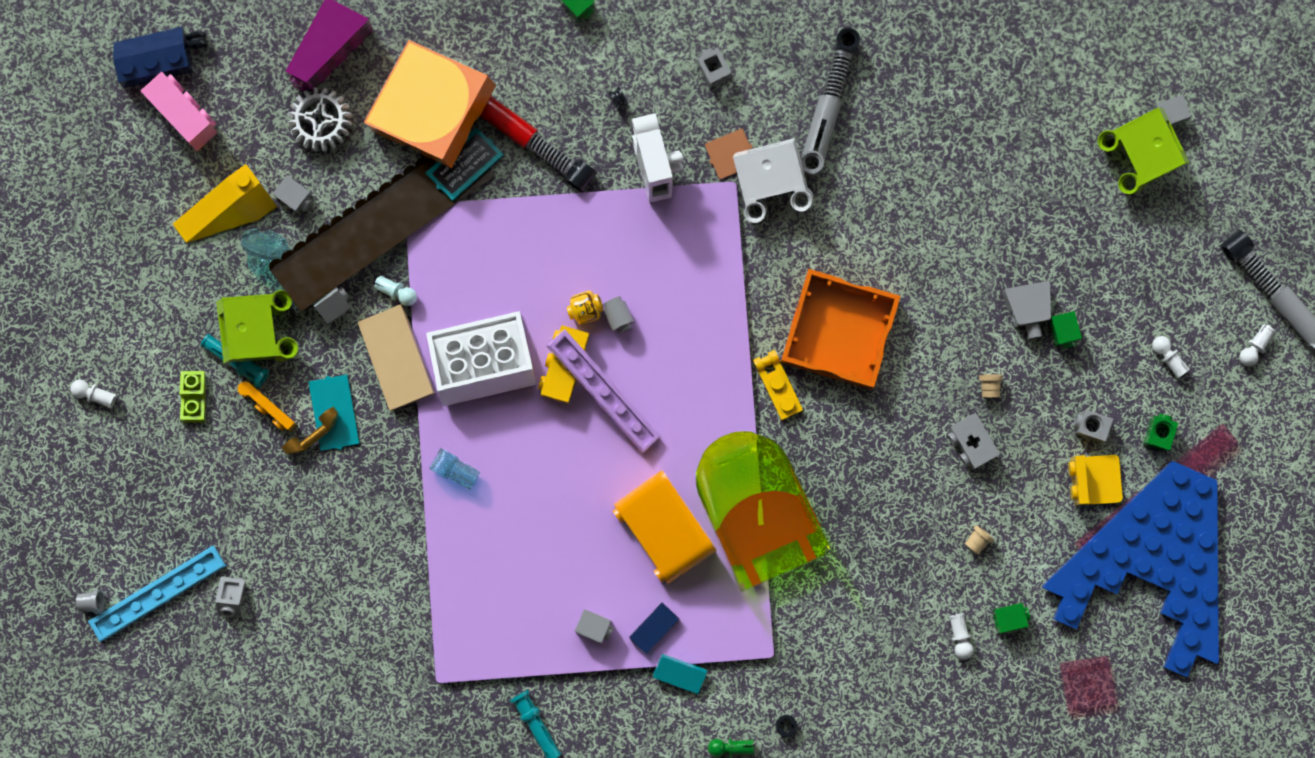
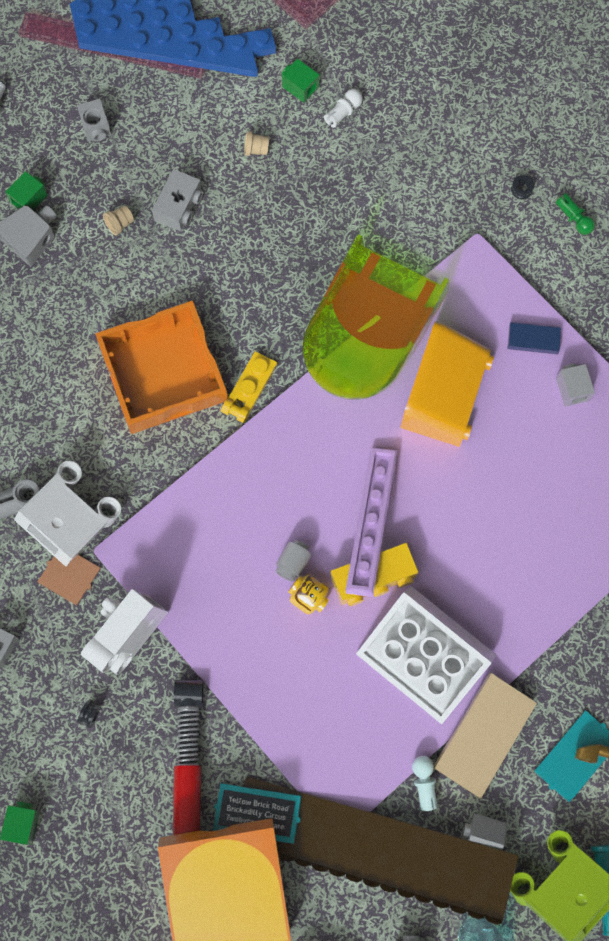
camera: 125 degrees left, 10 degrees down
(451, 467) = (542, 609): clear light blue piece -> none
(679, 673) = (552, 293): teal tile -> none
(1095, 479) = (138, 92): yellow bracket -> none
(1153, 440) = (61, 60): green brick -> none

